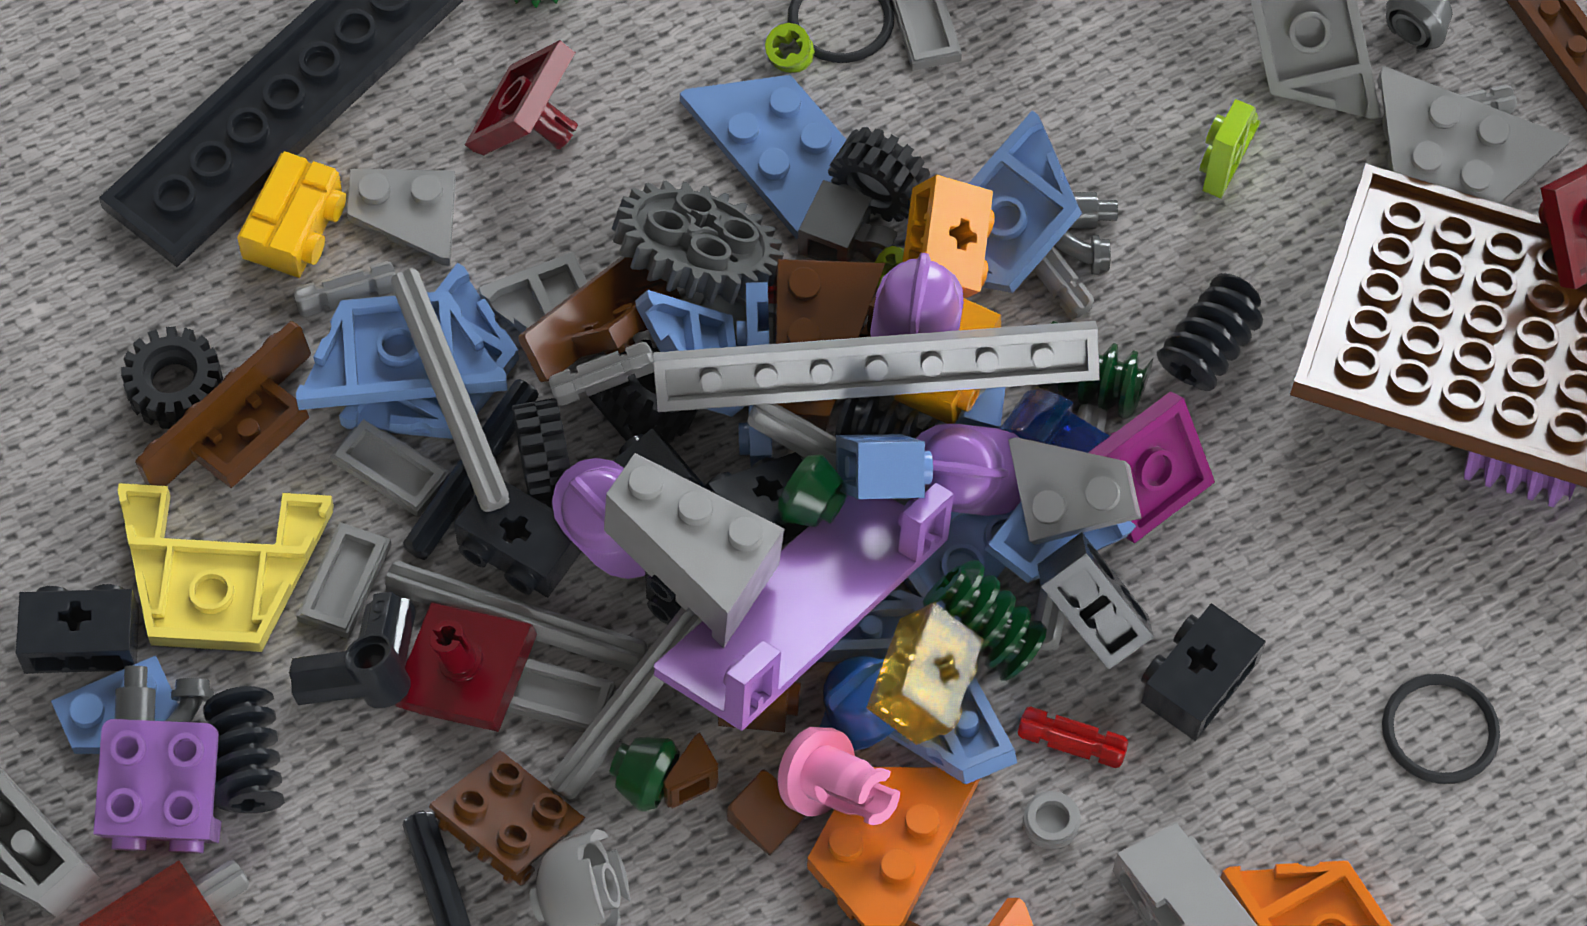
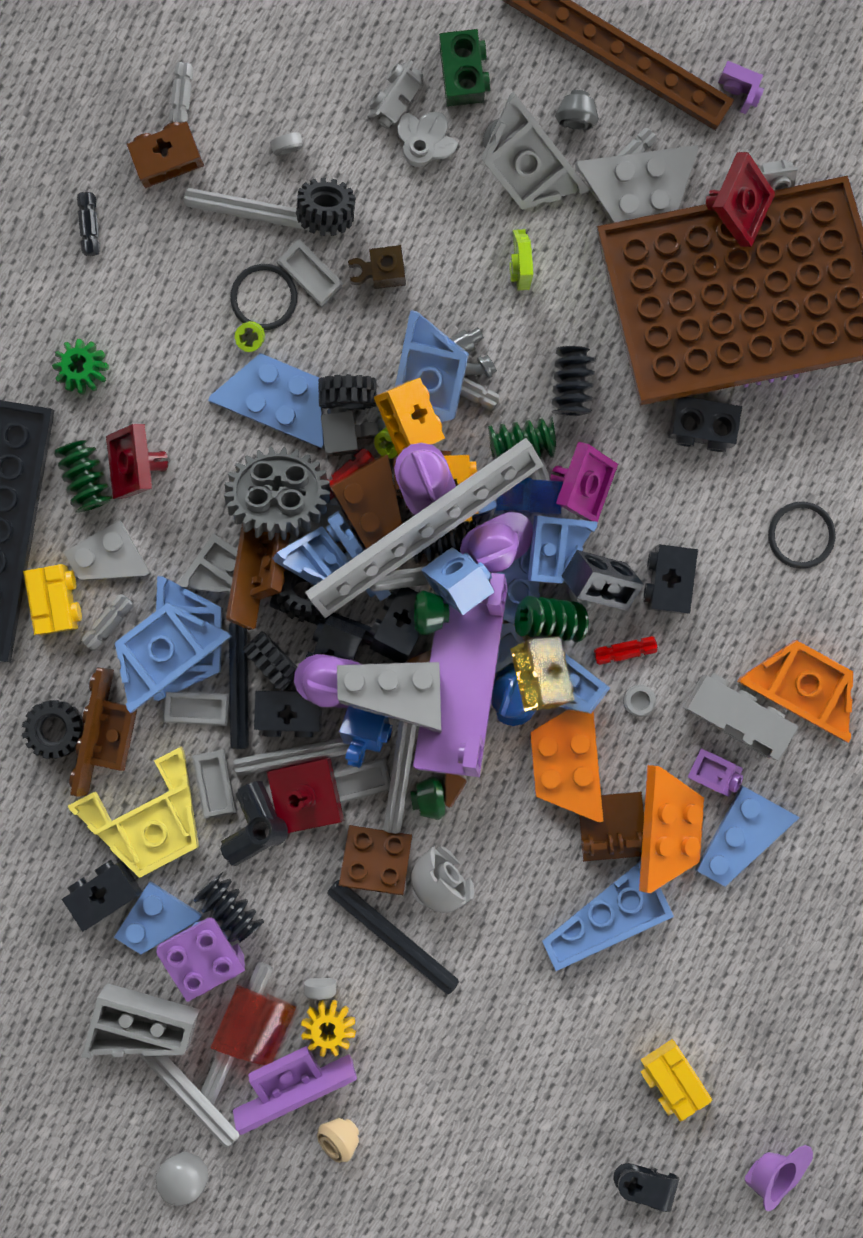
camera: 30 degrees left, 25 degrees up
(137, 701) = (160, 920): dark grey plant -> none
(445, 87) = (82, 476): none -> dark green piece
(450, 390) = (205, 662): light grey axle -> none
(602, 373) = (280, 609): light grey axle -> none
(611, 612) = (362, 732): none -> blue brick
(763, 814) = (500, 782): reddish brown slope -> none
(825, 774) = (519, 751): bright pink piece -> none
(1030, 59) = (385, 268): none -> dark brown brick
(1070, 490) = (560, 532): light grey wing -> none
(1386, 481) = (704, 414): none -> black brick

